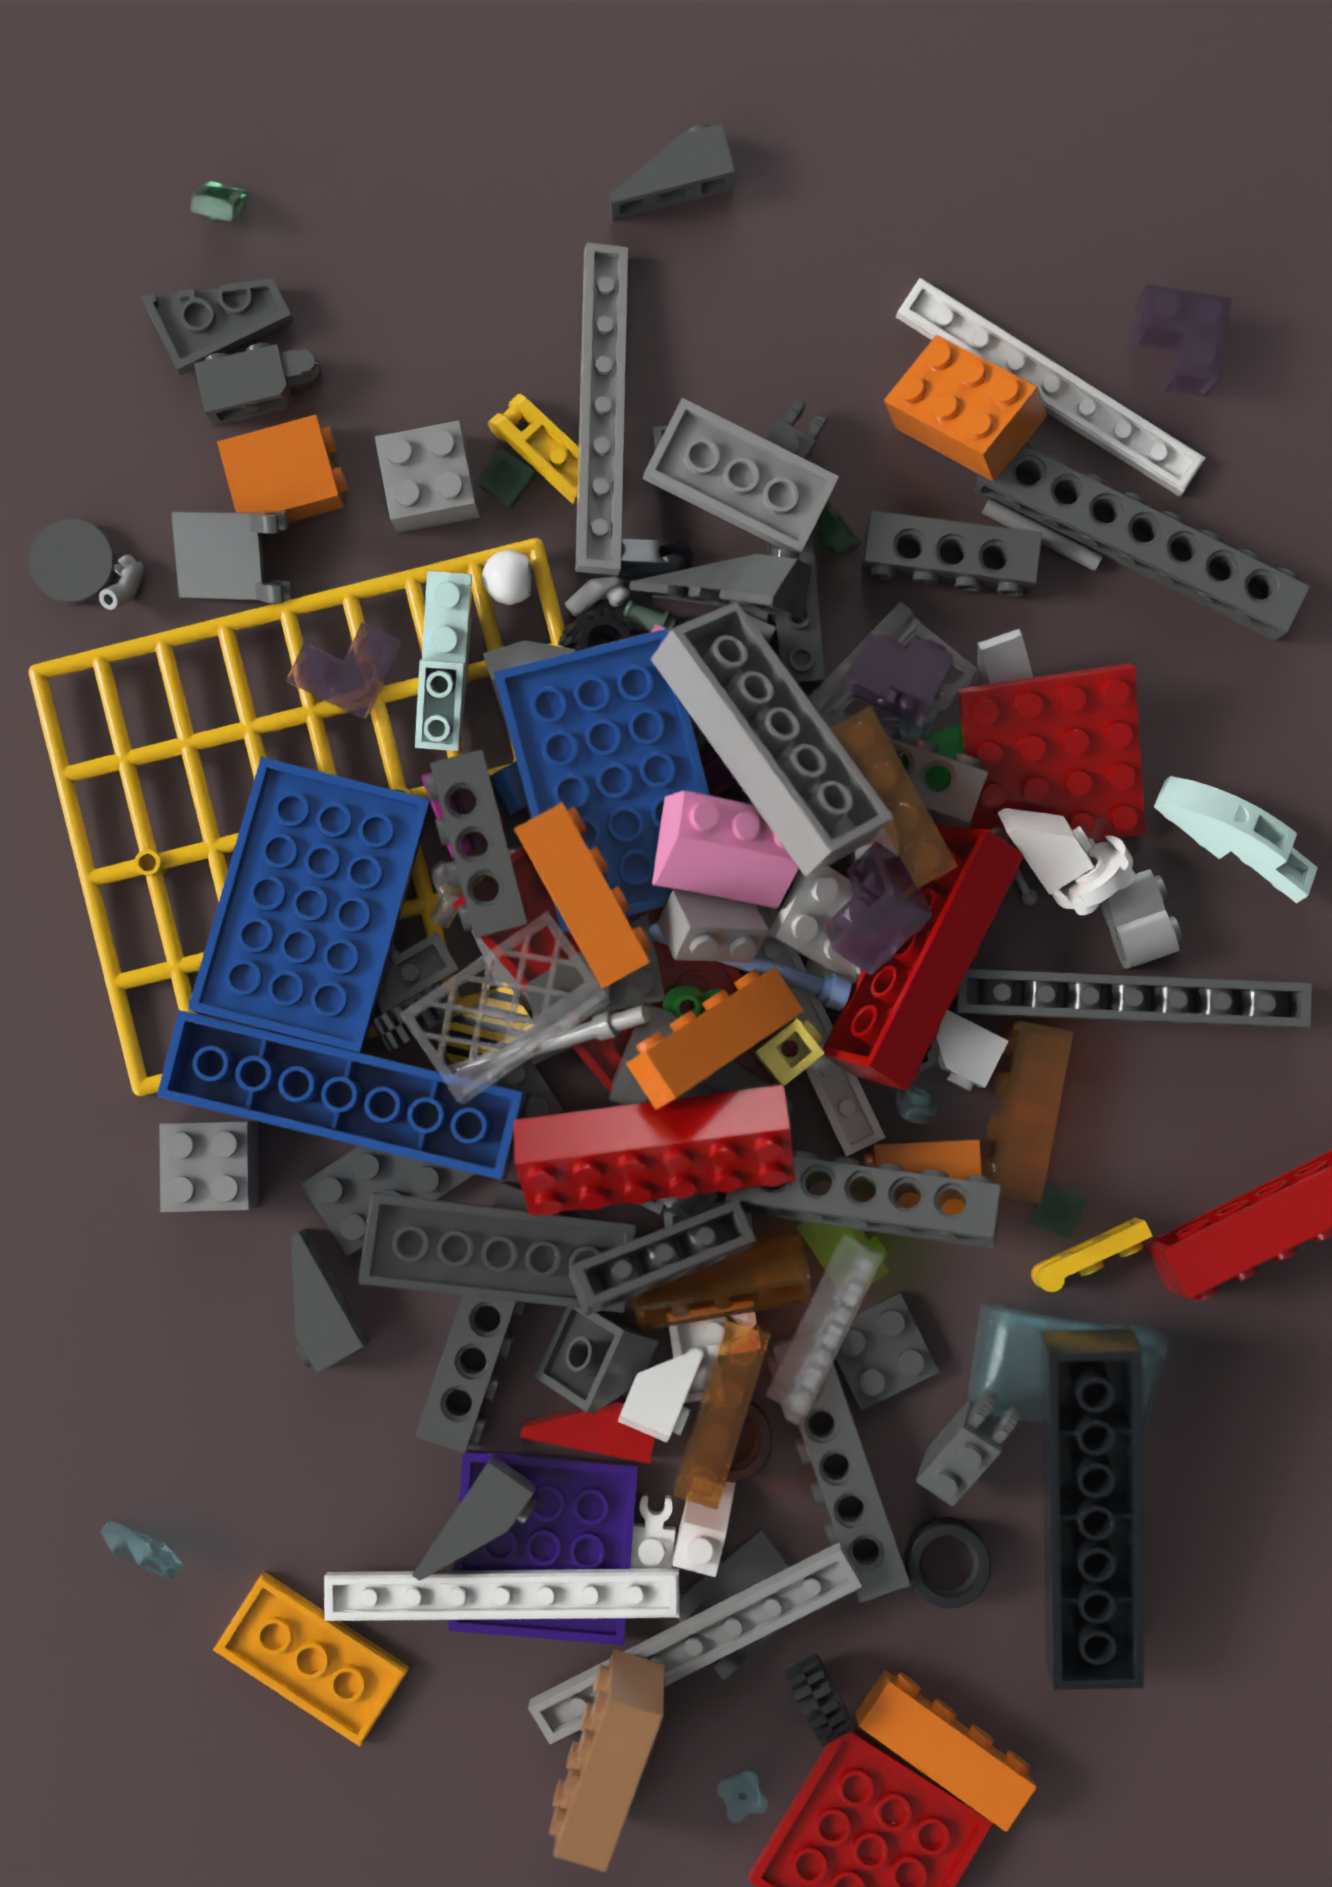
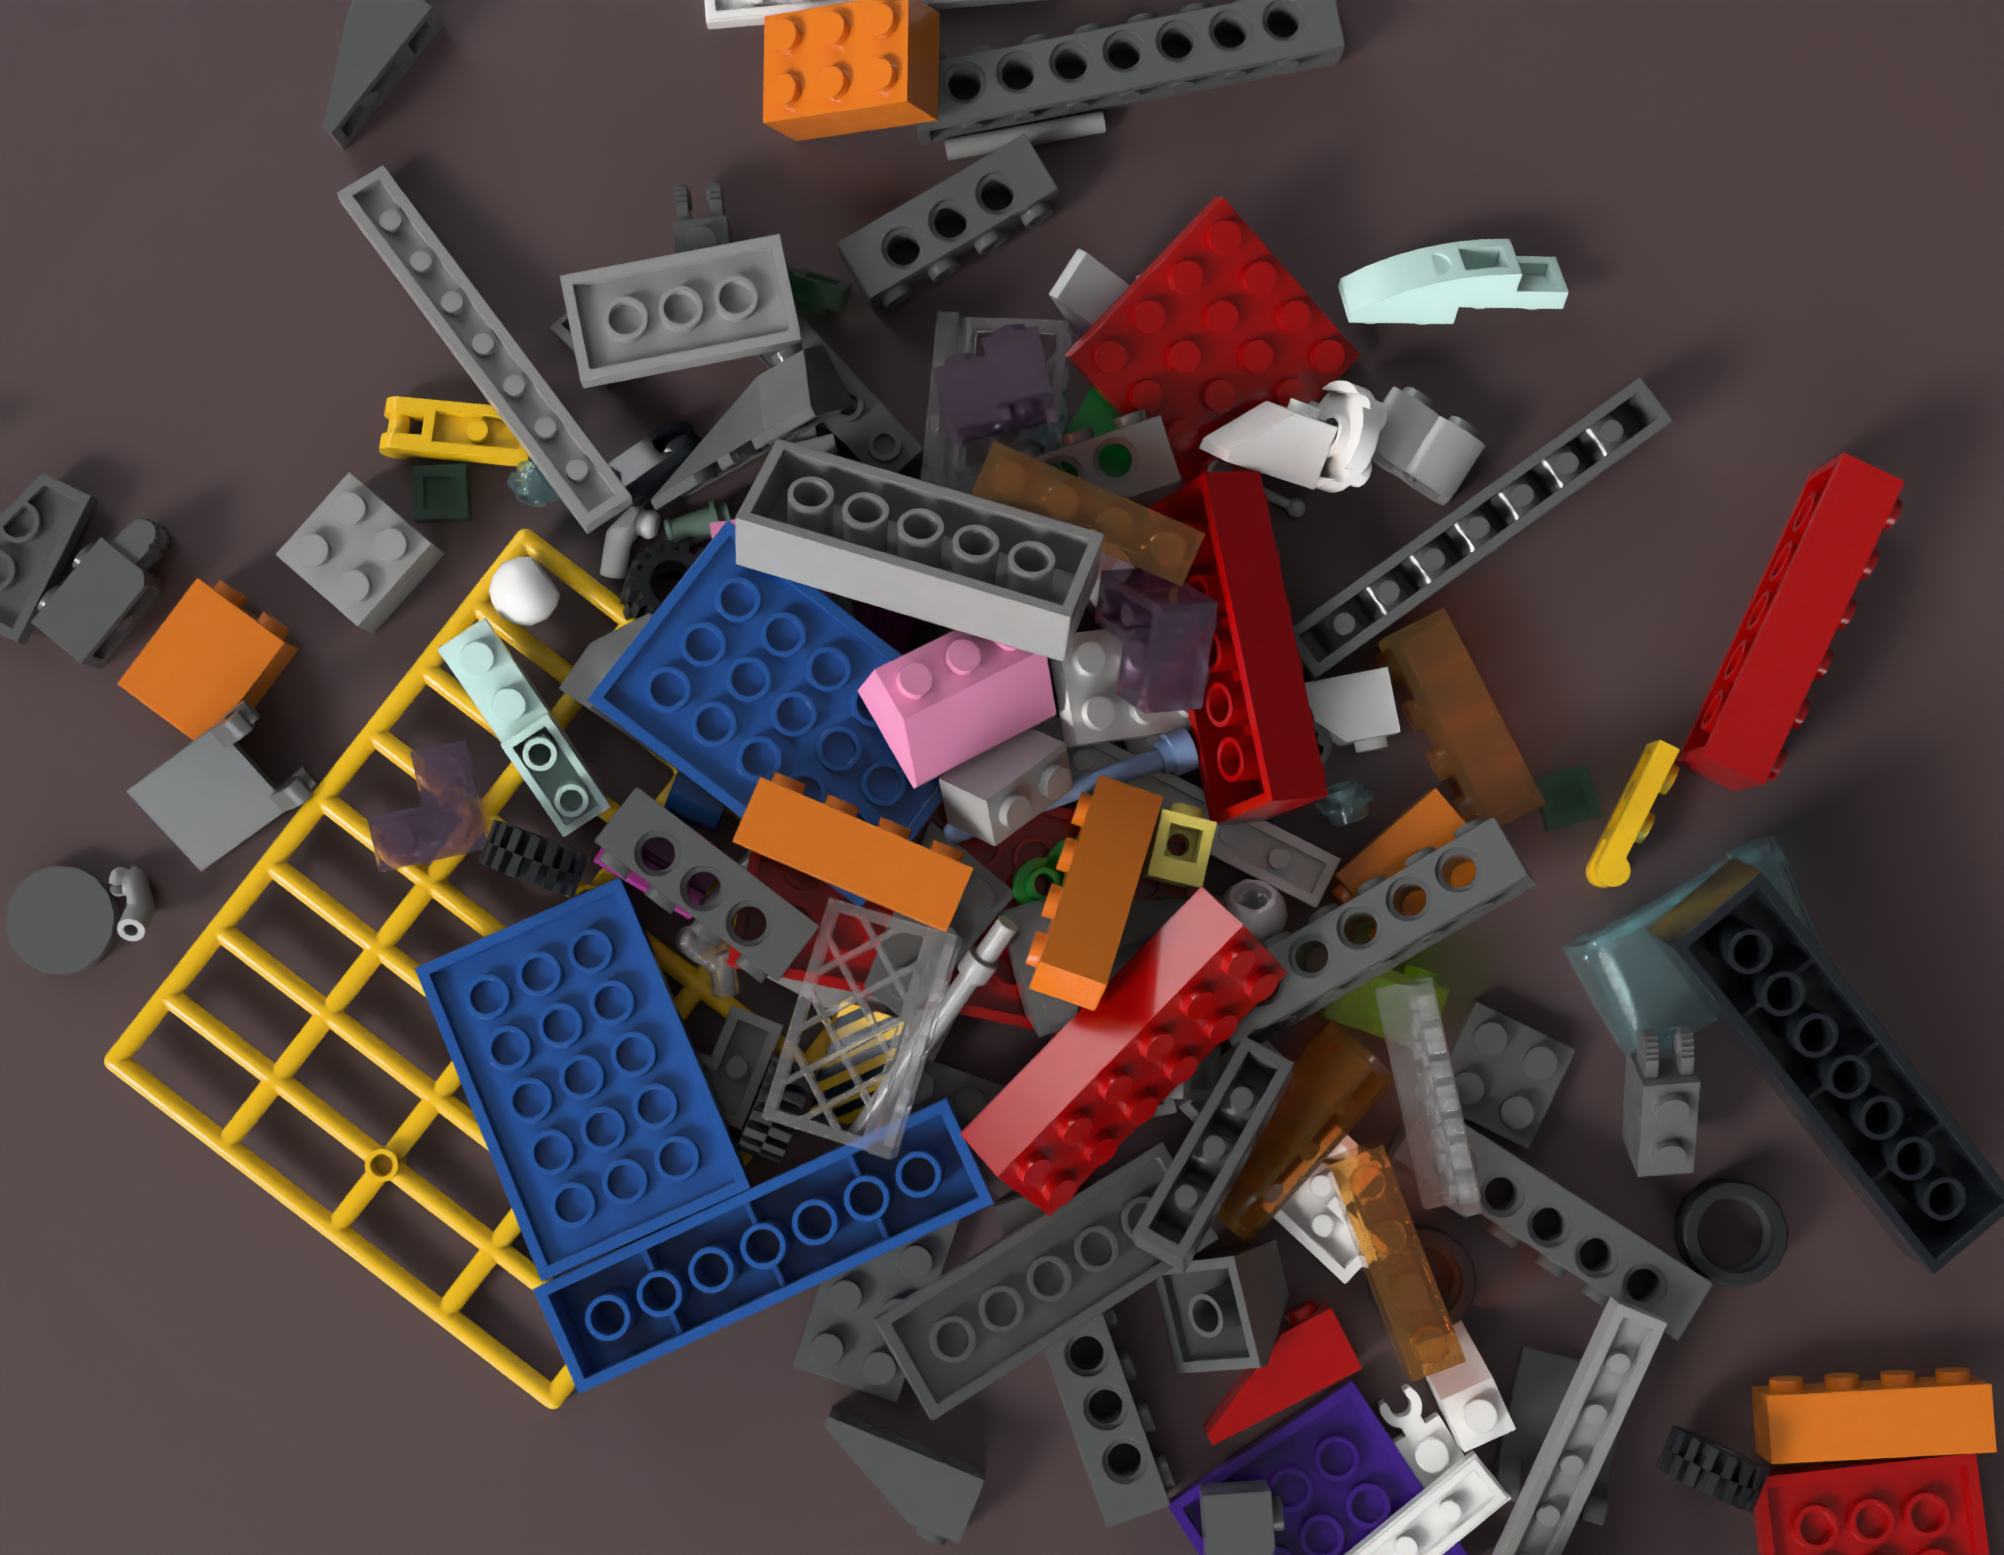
camera: 40 degrees left, 0 degrees up
(209, 1166) = (685, 1422): light grey brick -> none
(385, 746) = (533, 858): none -> black tyre
(564, 516) = (531, 485): none -> clear light blue plate
(659, 1396) = (1319, 1292): white slope -> none
(808, 1127) = (1257, 907): none -> white piece

